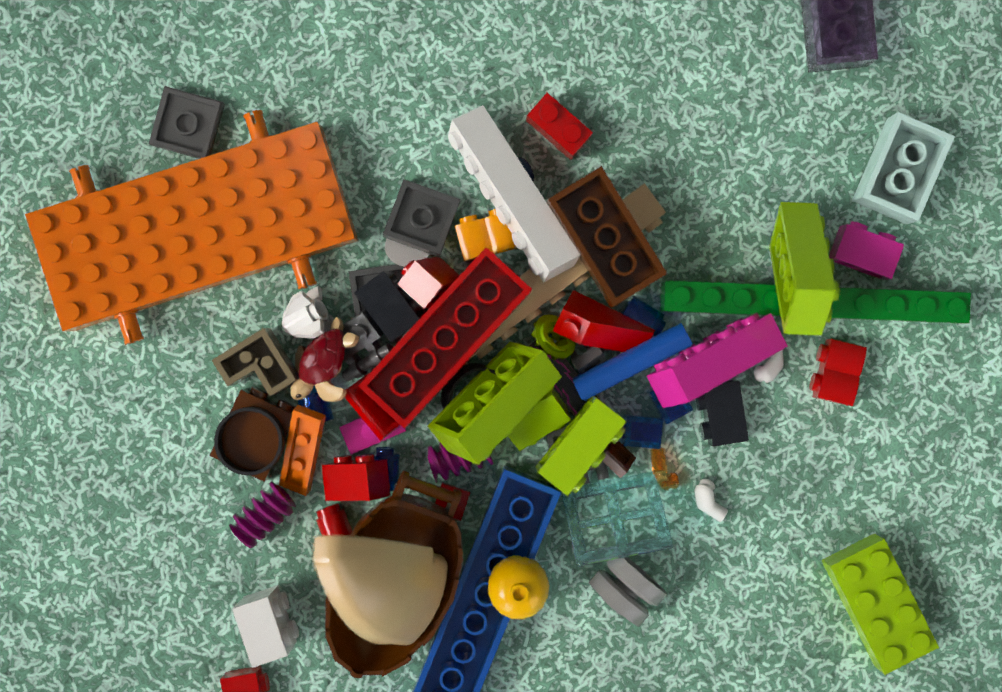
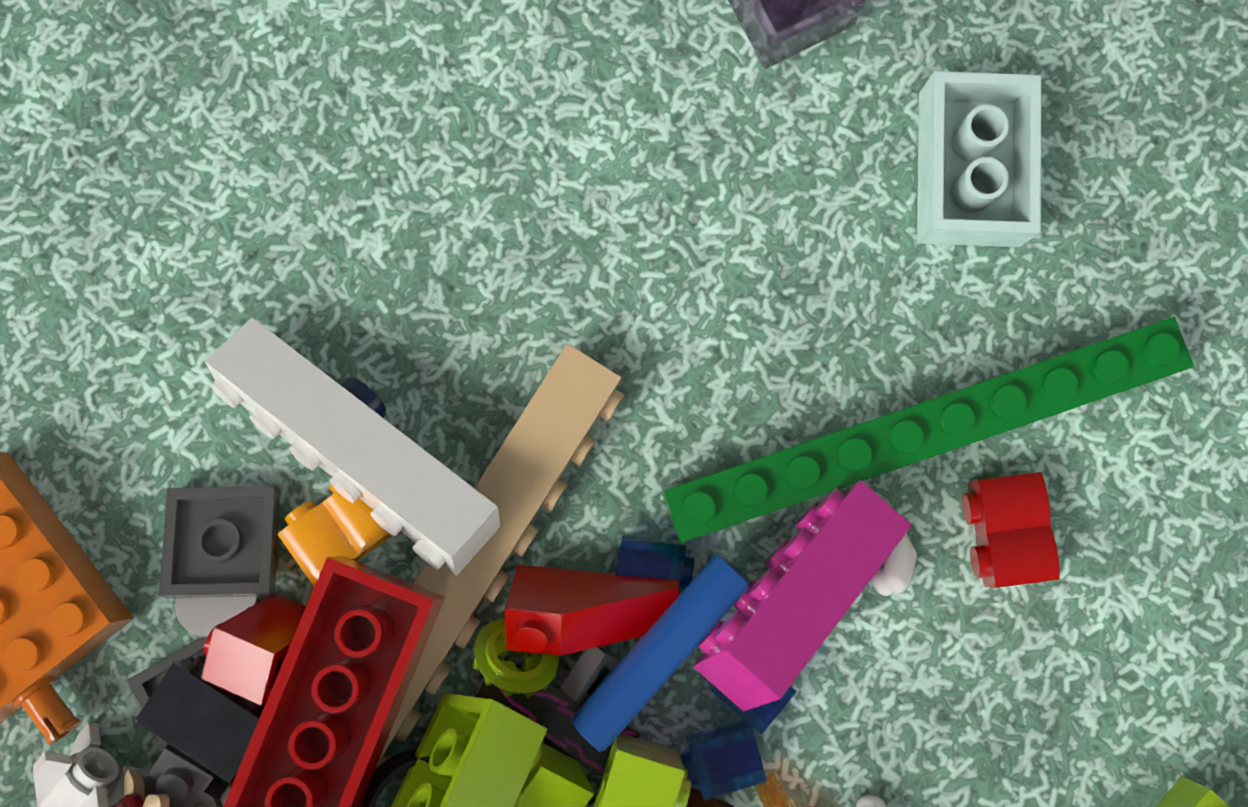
camera: 20 degrees left, 5 degrees down
(559, 126) = (393, 303): red brick -> none
(606, 237) = (530, 458): reddish brown brick -> none
(723, 415) = (854, 681): black brick -> none
(802, 269) = (886, 388): lime brick -> none
(866, 251) = (974, 314): dark pink brick -> none

